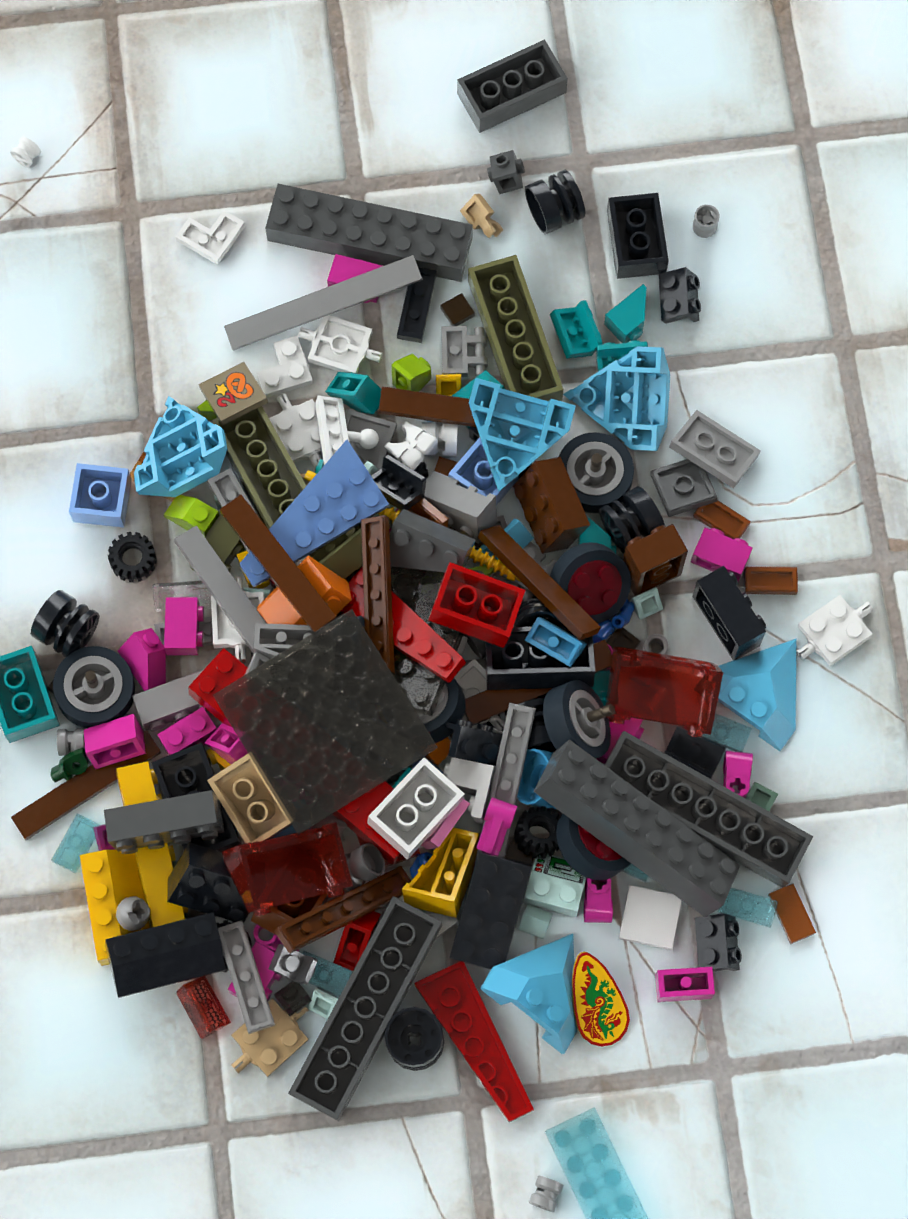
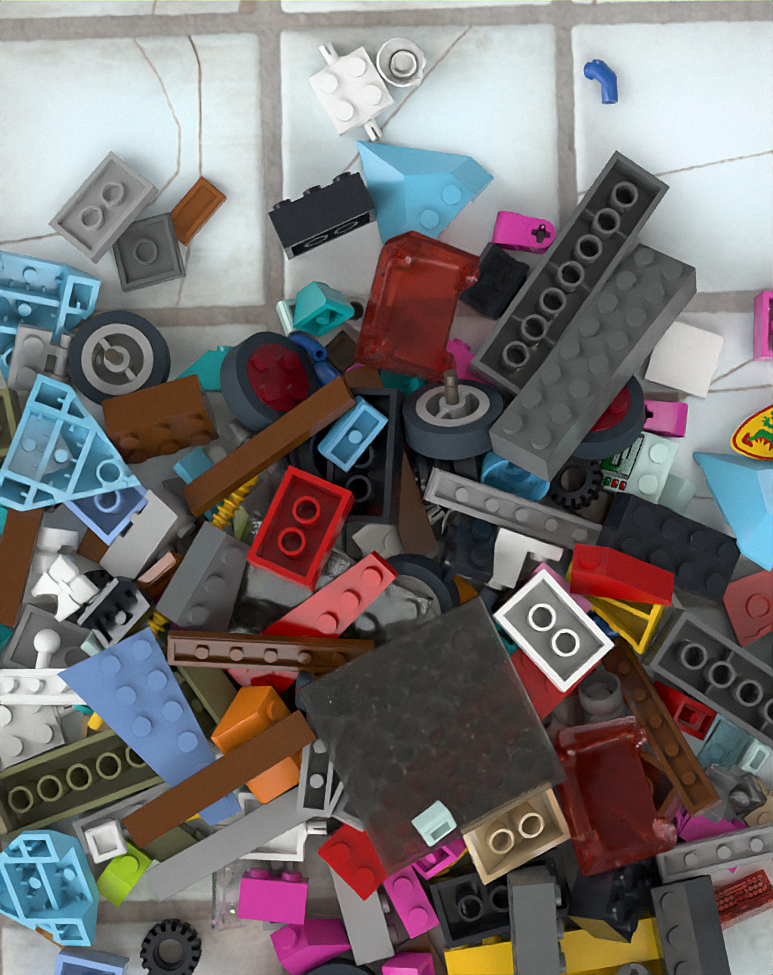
camera: 75 degrees left, 15 degrees up
(218, 493) = (106, 841): none -> white tile
(255, 726) = (434, 823): none -> light aqua slope
(464, 858) = (615, 575): none -> red slope
(497, 821) = (567, 529): dark pink piece -> none
(590, 405) = (30, 356): none -> light grey plate
(633, 519) = (187, 314): black wheel -> none
(654, 618) = (320, 309): none -> teal slope
(655, 558) = (245, 293): reddish brown brick -> none
(718, 942) = (725, 282): black bracket -> none
(719, 550) = (241, 215): dark pink brick -> none
(729, 733) = (471, 232): clear light blue plate -> none
(749, 907) = (686, 234): clear light blue plate -> none
(762, 796) = (555, 209): sand green plate -> none
(771, 580) = (279, 161): dark orange tile -> none
(792, 914) = (695, 190): dark orange tile -> none
(863, 664) = (401, 62): none -> white hair
(876, 832) = (606, 77): none -> blue arm

